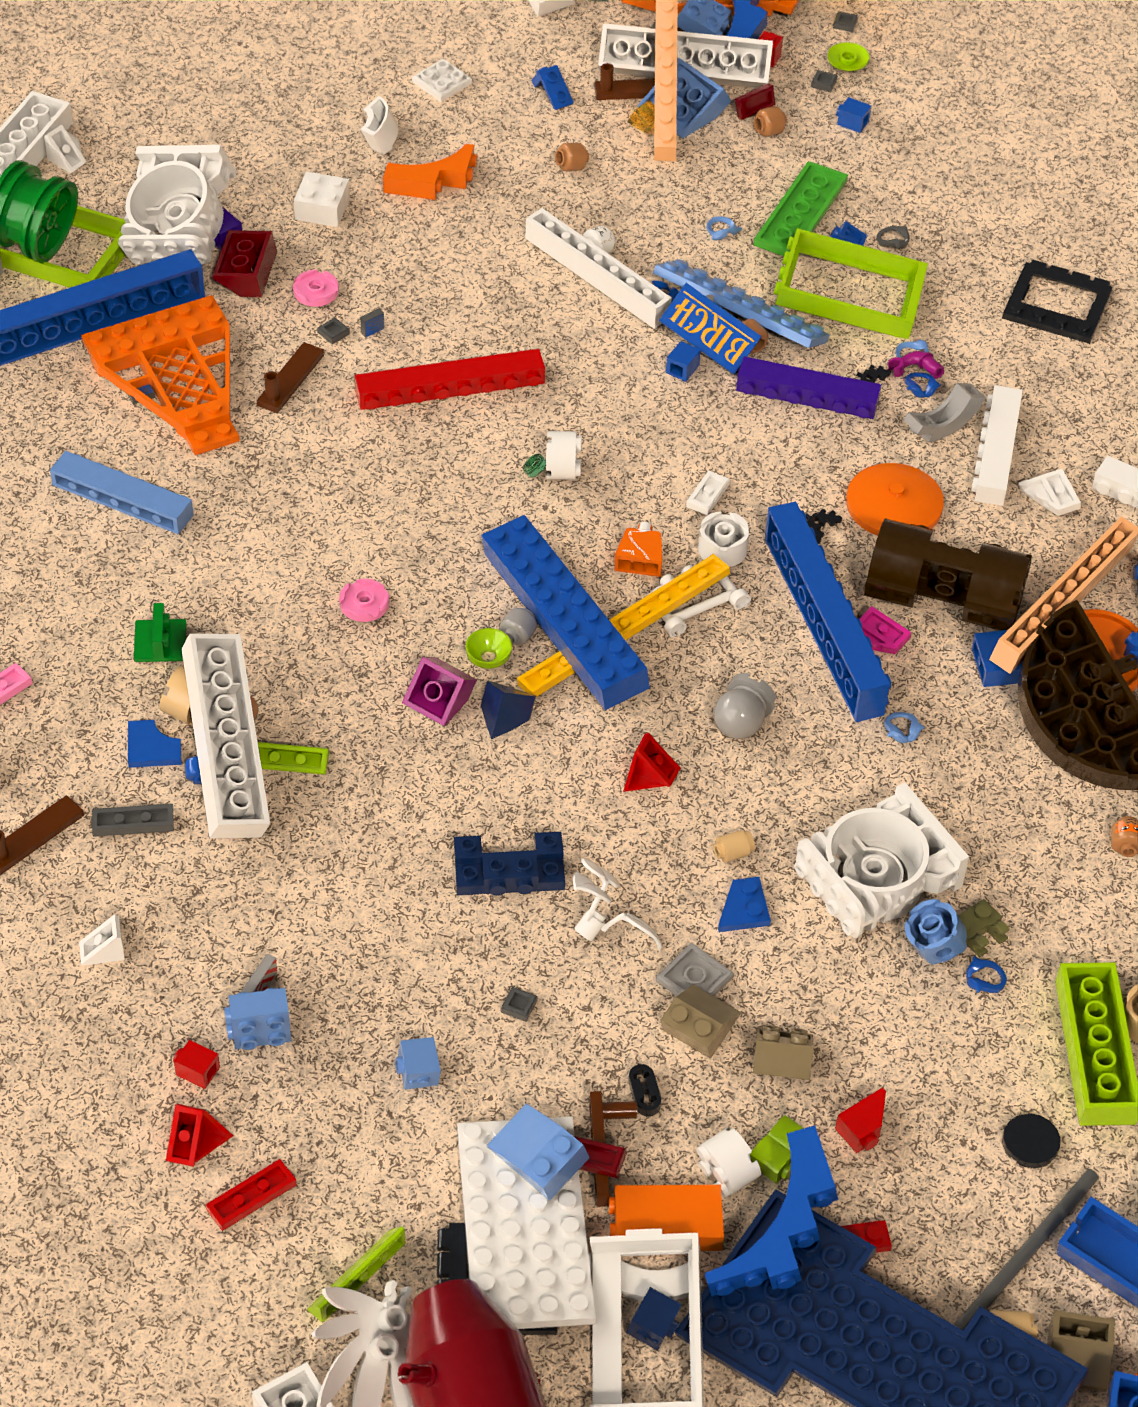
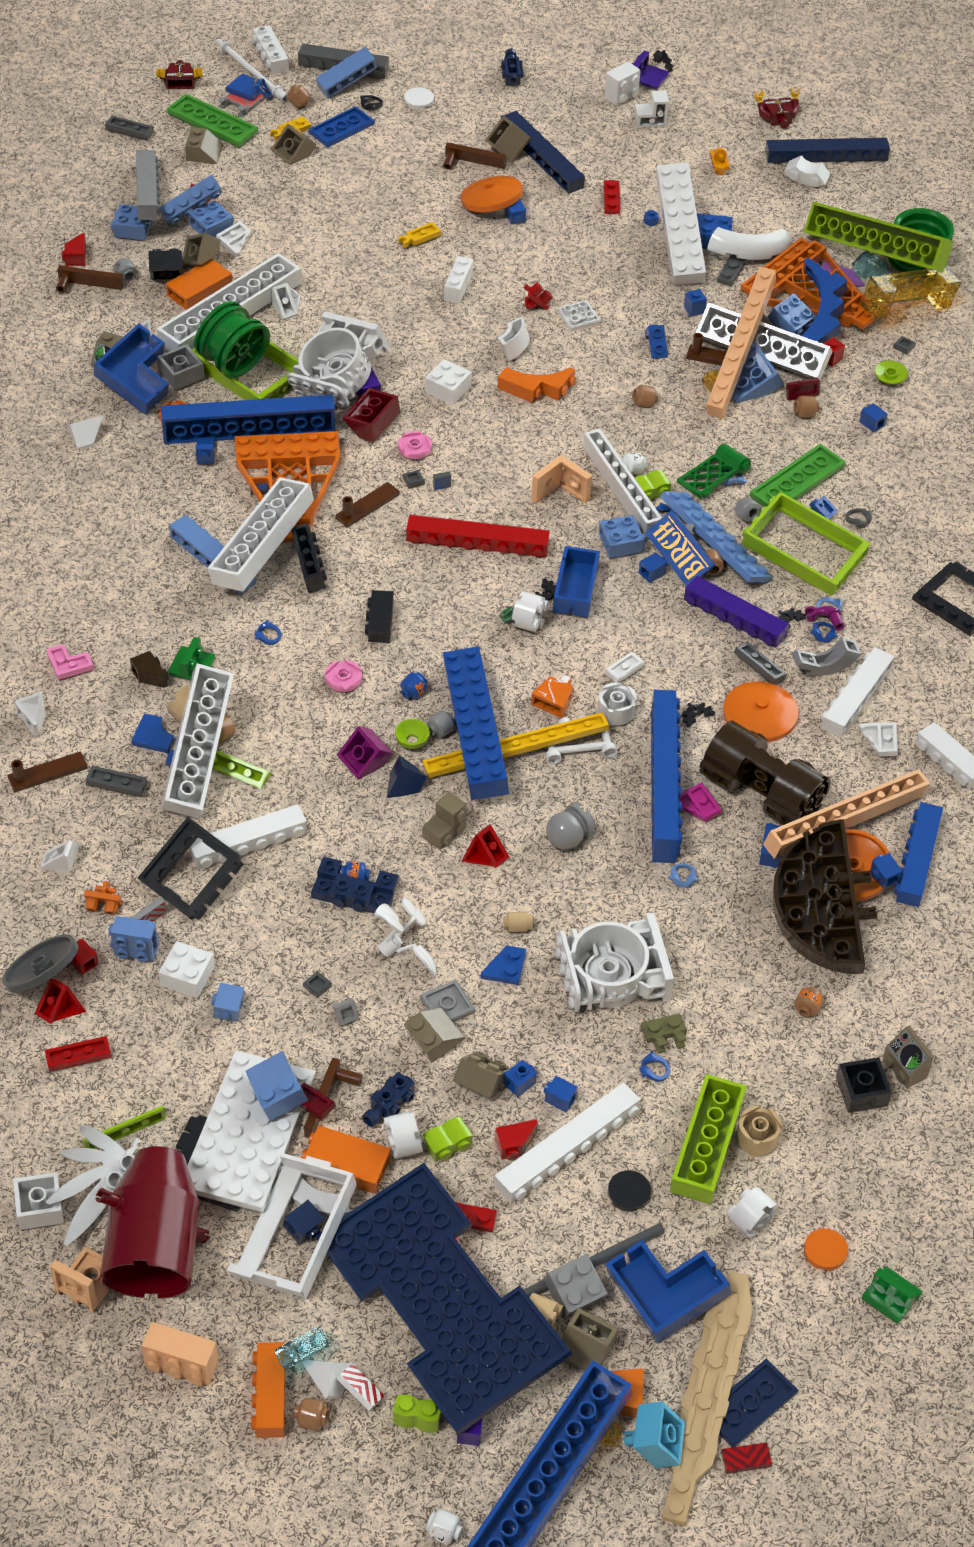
camera: 20 degrees right, 0 degrees up
(49, 363) = (205, 451): none -> blue bracket
(108, 664) = (149, 670): none -> dark brown slope
(151, 1090) = (40, 963): none -> dark grey dish
(182, 449) = (260, 534): none -> white brick
(197, 28) = (419, 235): none -> yellow plate
(201, 978) = (110, 900): none -> orange hips
(230, 579) = (258, 634): none -> blue piece
(251, 463) = (308, 557): none -> black brick
(257, 889) = (173, 852): none -> black hinge
(274, 71) = (458, 279): none -> white brick
(340, 841) = (252, 835): none -> white brick
(344, 1037) = (186, 969): none -> white brick
(376, 512) = (379, 616): none -> black brick
(384, 67) = (535, 298): none -> red hips
(460, 587) = (413, 685): none -> blue head
(500, 841) = (356, 870): none -> blue head
(523, 275) = (564, 474): none -> light nougat bracket
(567, 421) = (548, 588): none -> black animal
(574, 1027) = (346, 1012): none -> light grey tile
(577, 30) = (695, 302): none -> blue brick
(587, 746) = (447, 822): none -> dark tan brick
(601, 402) = (576, 581): none -> blue piece
(627, 333) = (621, 536): none -> medium blue brick
(638, 257) = (654, 483): none -> lime brick
(650, 1088) = (369, 1069): black beam -> none
(689, 1108) = (398, 1089): none -> dark blue brick
(710, 207) = (727, 458): none -> green piece
(762, 261) = (747, 509): none -> light grey head
(794, 1226) = (421, 1190): blue arch -> none
(824, 81) = (865, 386): dark grey tile -> none
(833, 1042) = (520, 1078): none -> blue brick
(867, 442) = (760, 663): none -> dark grey plate
(891, 1045) = (560, 1093): none -> blue brick
(929, 1106) = (566, 1143): none -> white brick
(936, 931) = (629, 1024): medium blue brick -> none
(1032, 1282) = (575, 1285): none -> light grey brick

